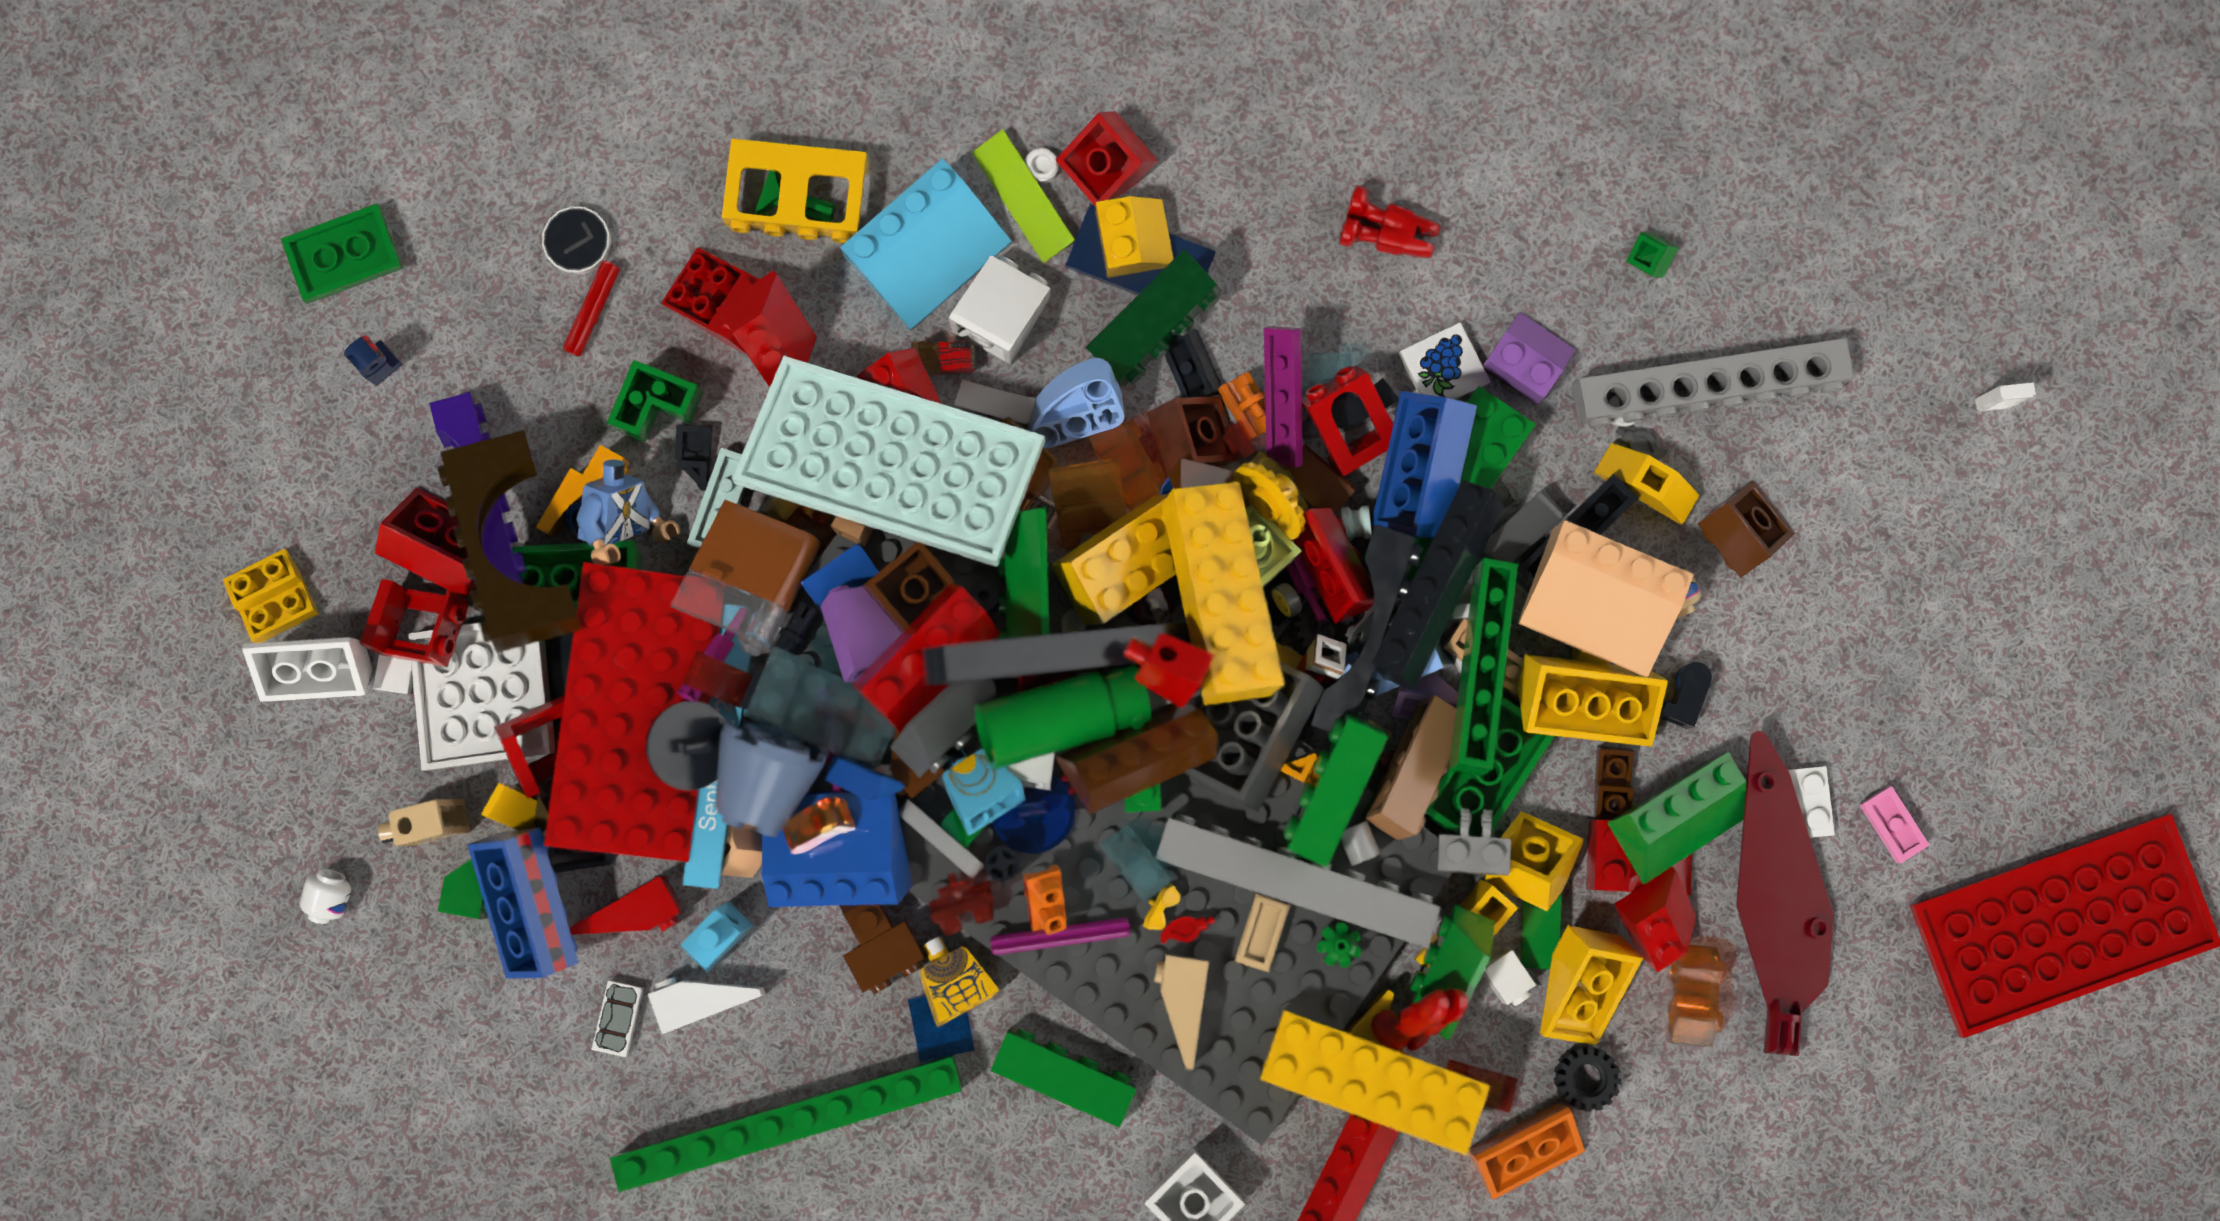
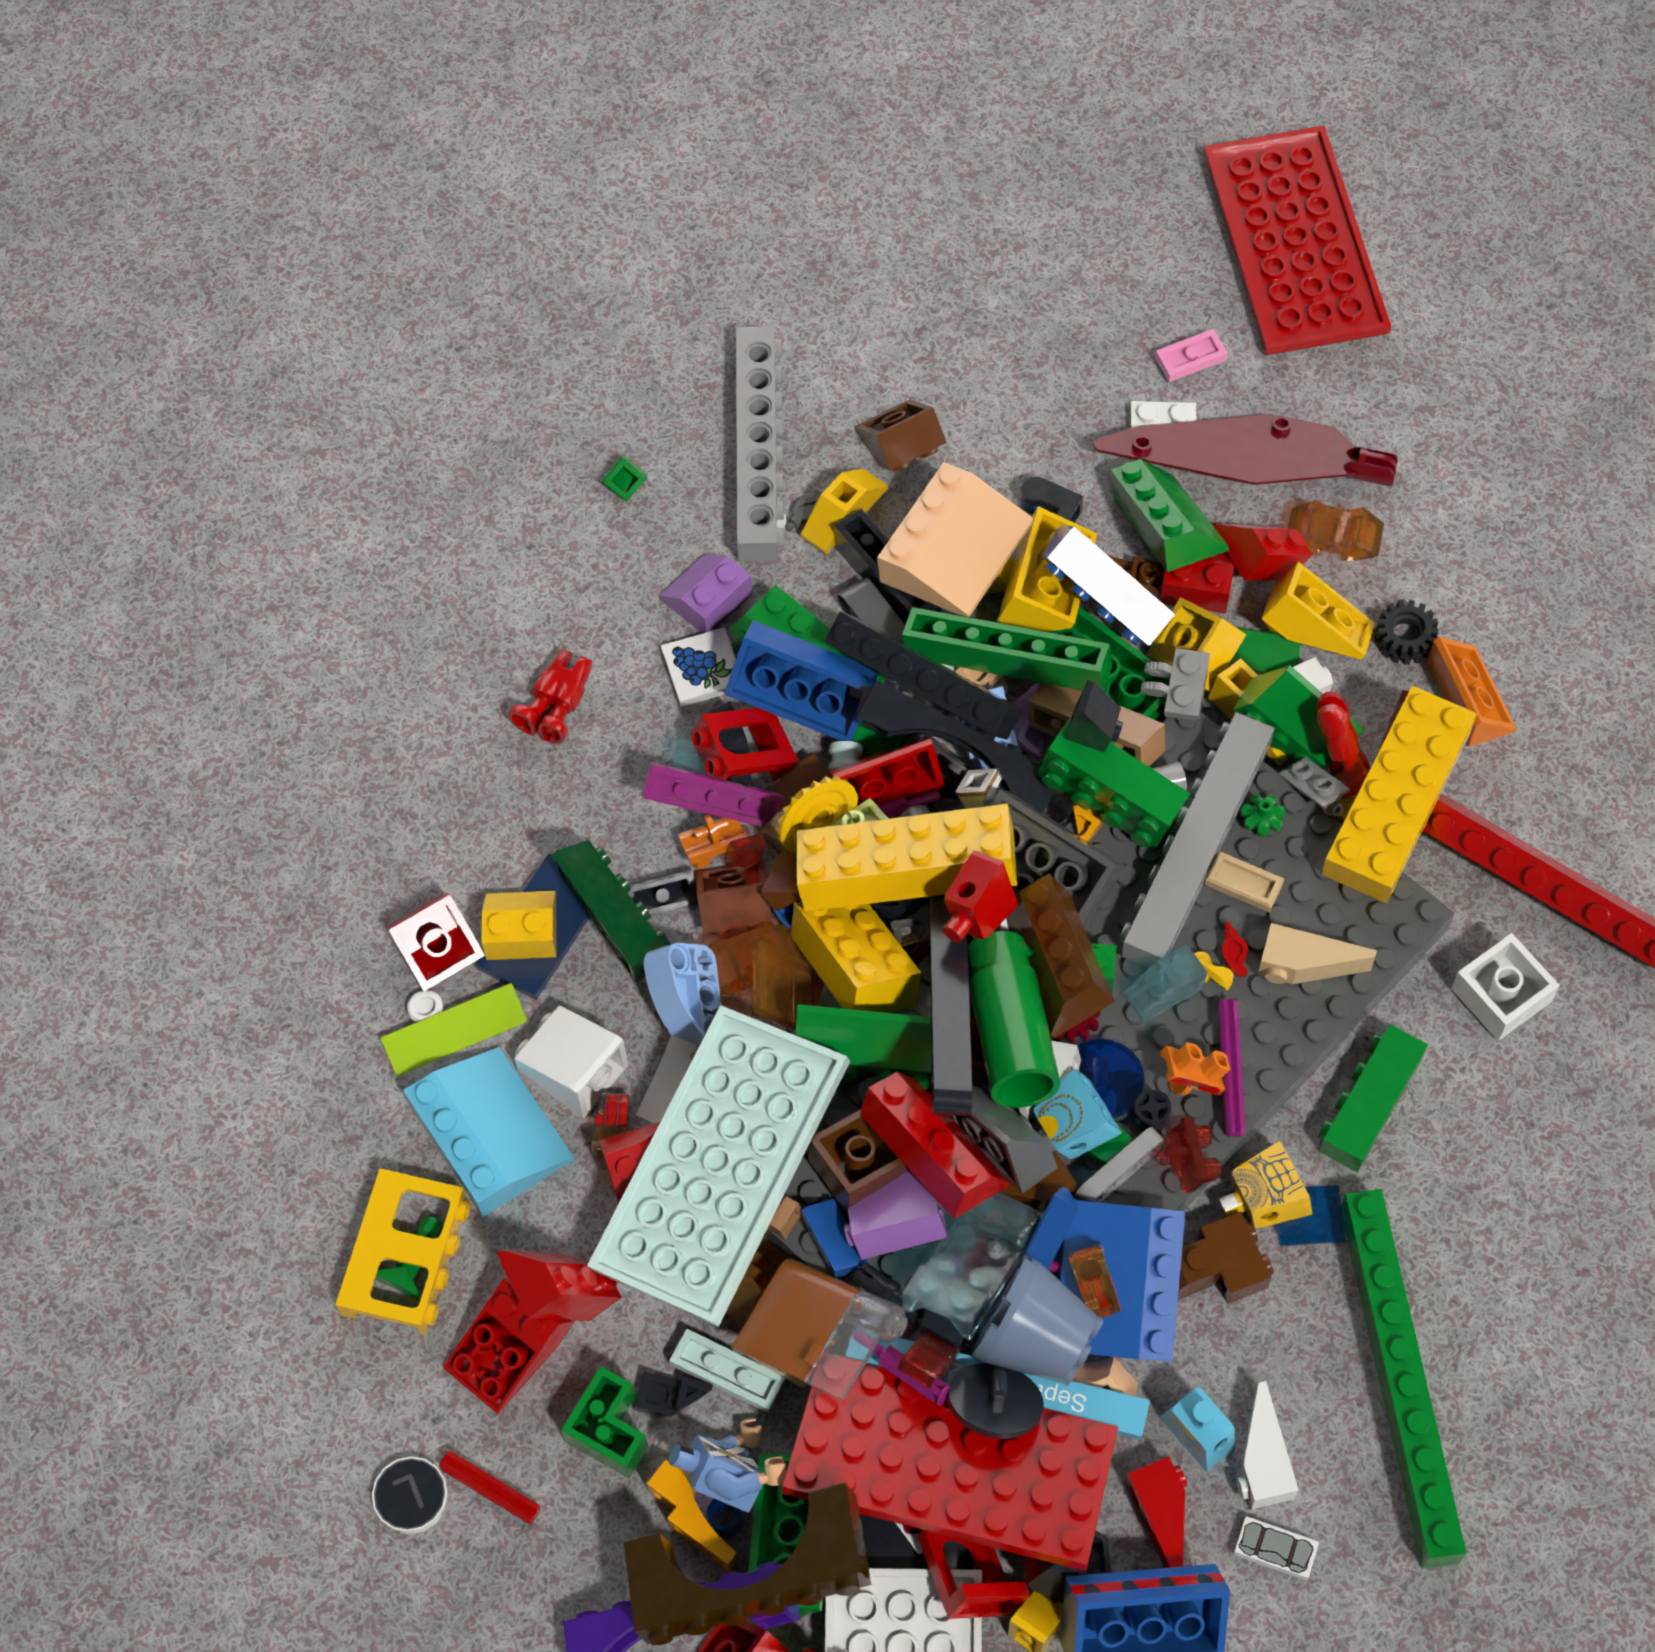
camera: 75 degrees left, 20 degrees down
(1378, 761) = (1094, 719): none -> black slope
(1381, 995) = (1316, 785): none -> light grey hinge
(1579, 759) = (1107, 585): none -> slope
(2005, 397) = (812, 213): white tile -> none

